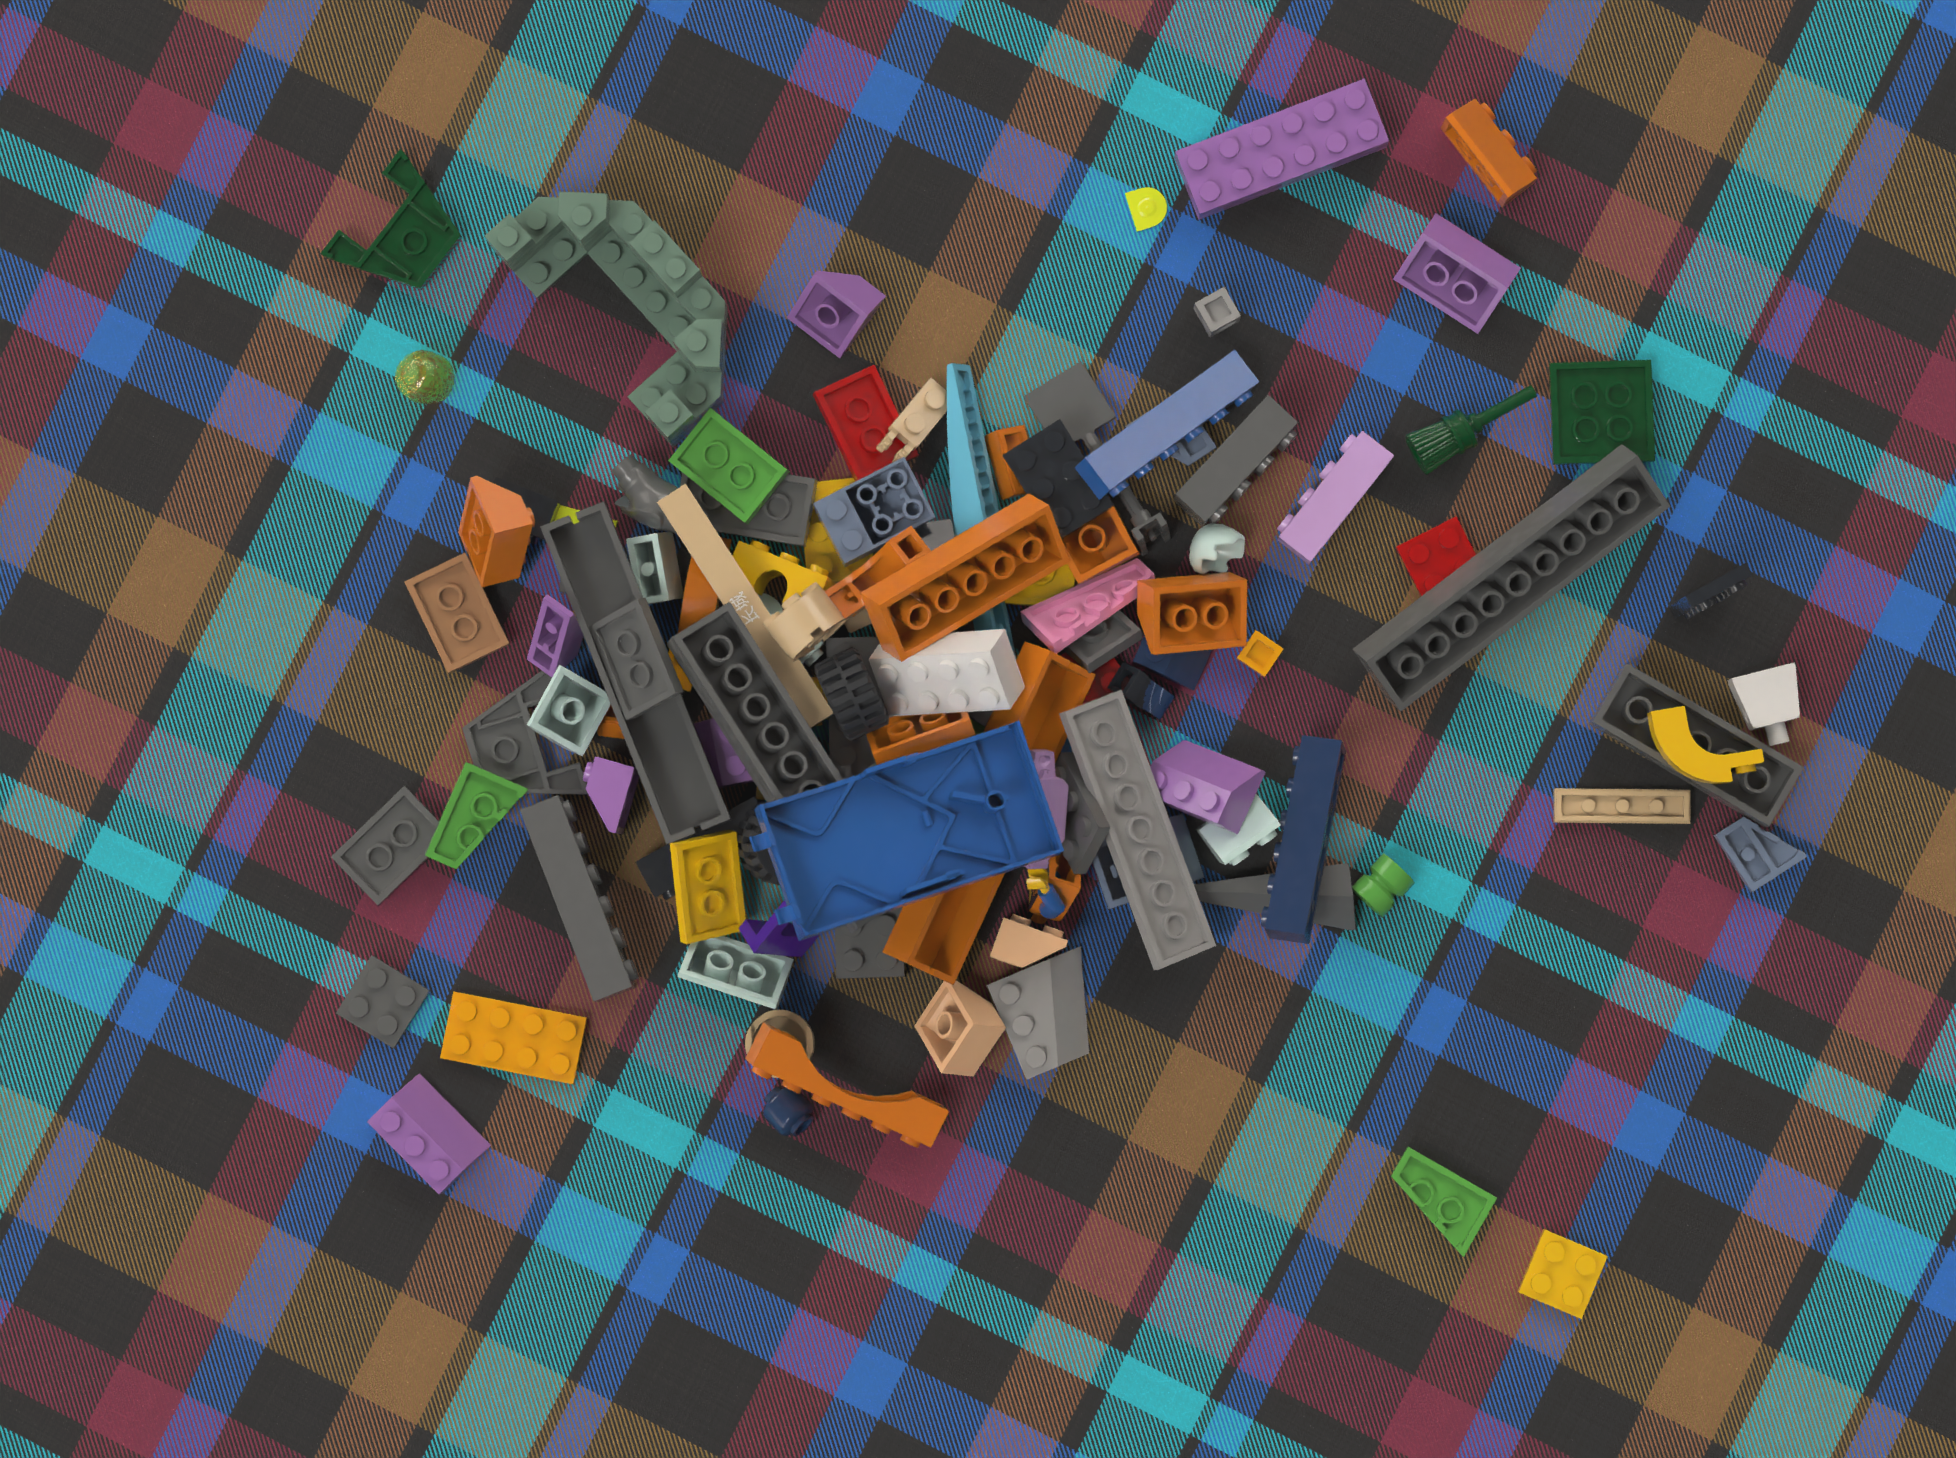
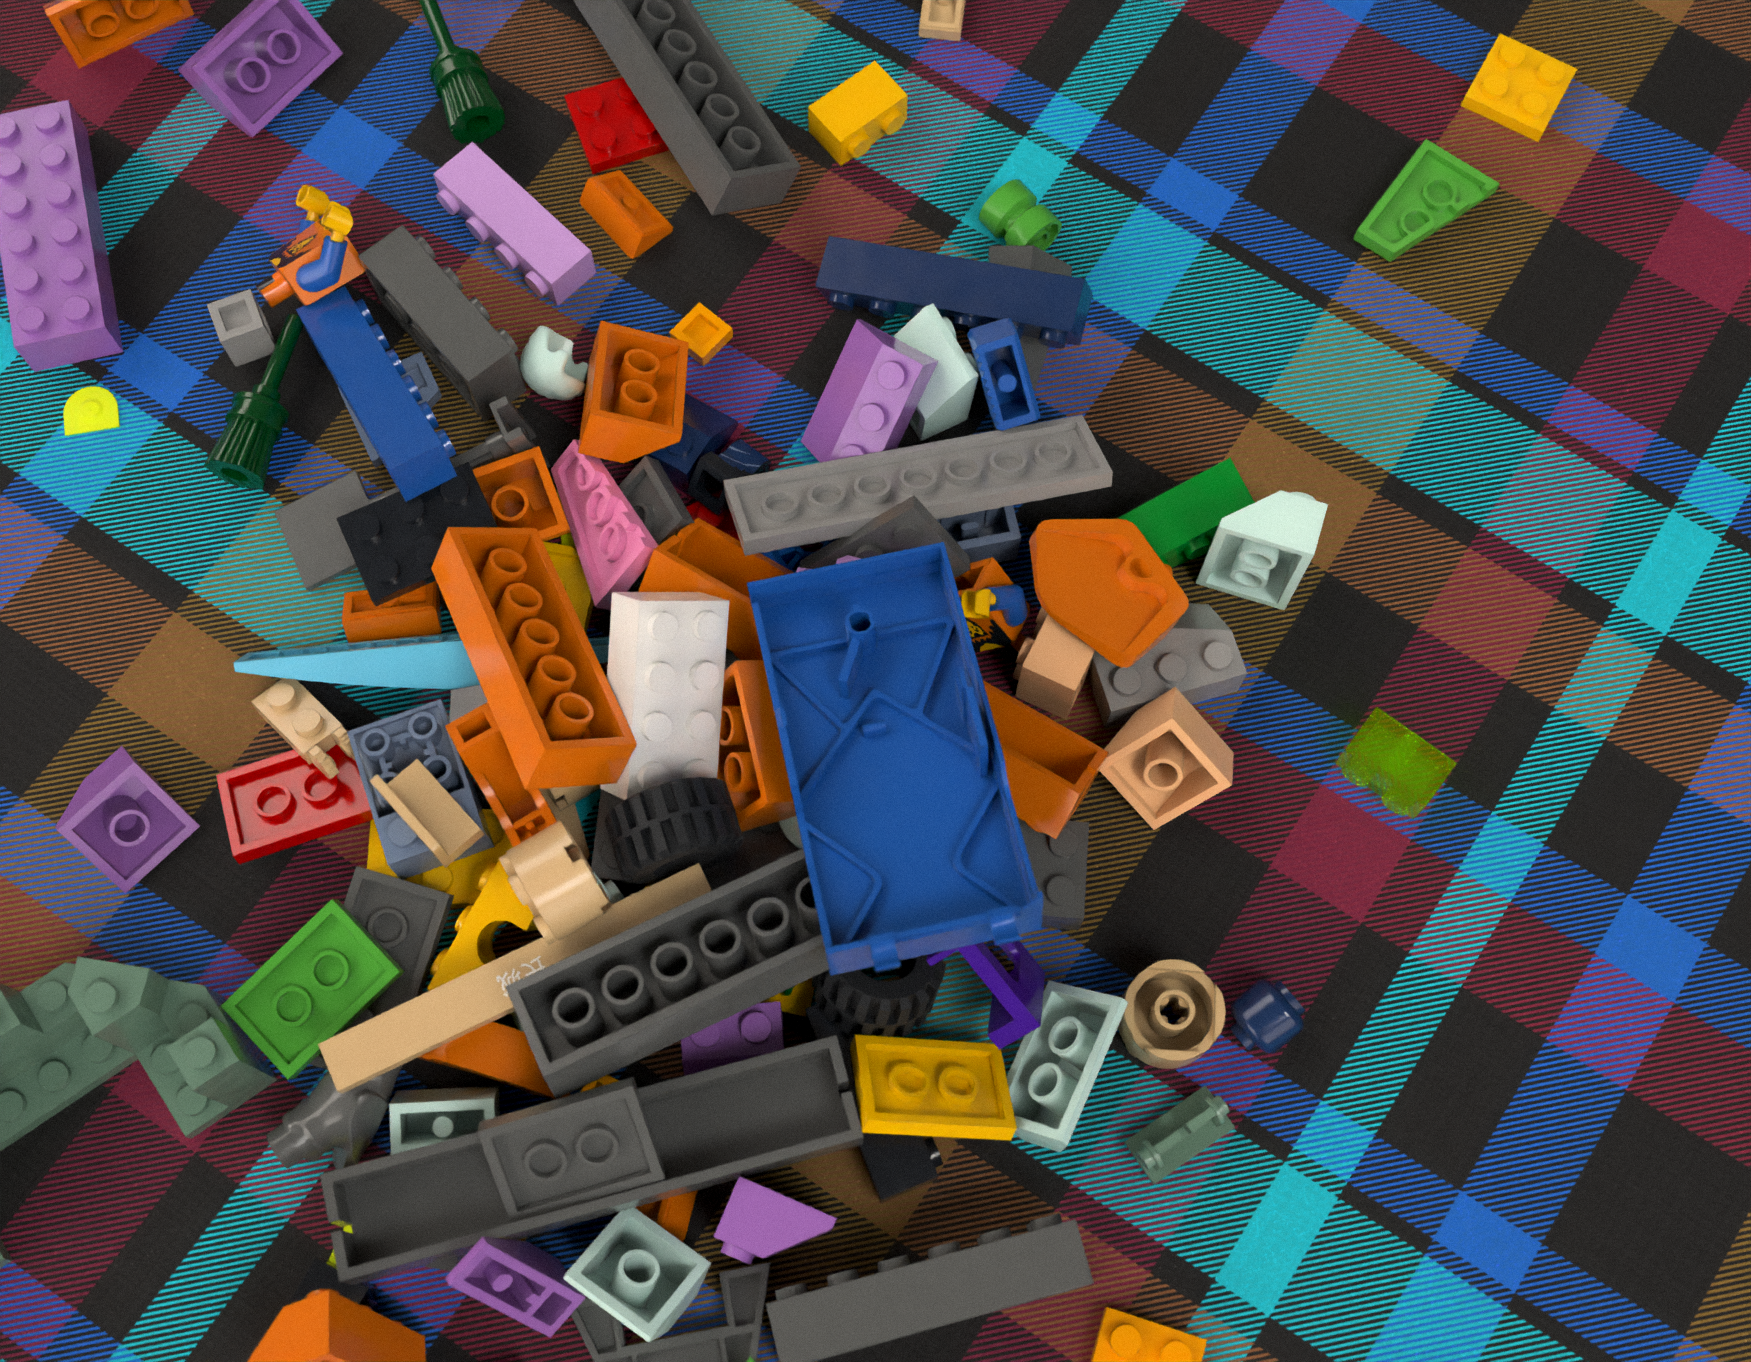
camera: 90 degrees left, 15 degrees down
(703, 1058) = (1180, 1134): none -> sand green hinge
(848, 526) = (430, 812): none -> tan panel
(906, 1113) = (1203, 992): orange arch -> none
(978, 1192) = (1394, 764): none -> clear neon green brick
(1073, 971) = (1105, 585): none -> orange animal
(1119, 1086) = (1264, 548): none -> light aqua slope
(1143, 1032) = (1187, 516): none -> green wedge
(1149, 336) = (255, 420): none -> dark green piece
(1232, 883) = (1004, 374): none -> blue brick
(1280, 355) = (317, 257): none -> torso
(1361, 579) = (624, 213): none -> orange slope
(1465, 750) = (858, 113): none -> yellow brick

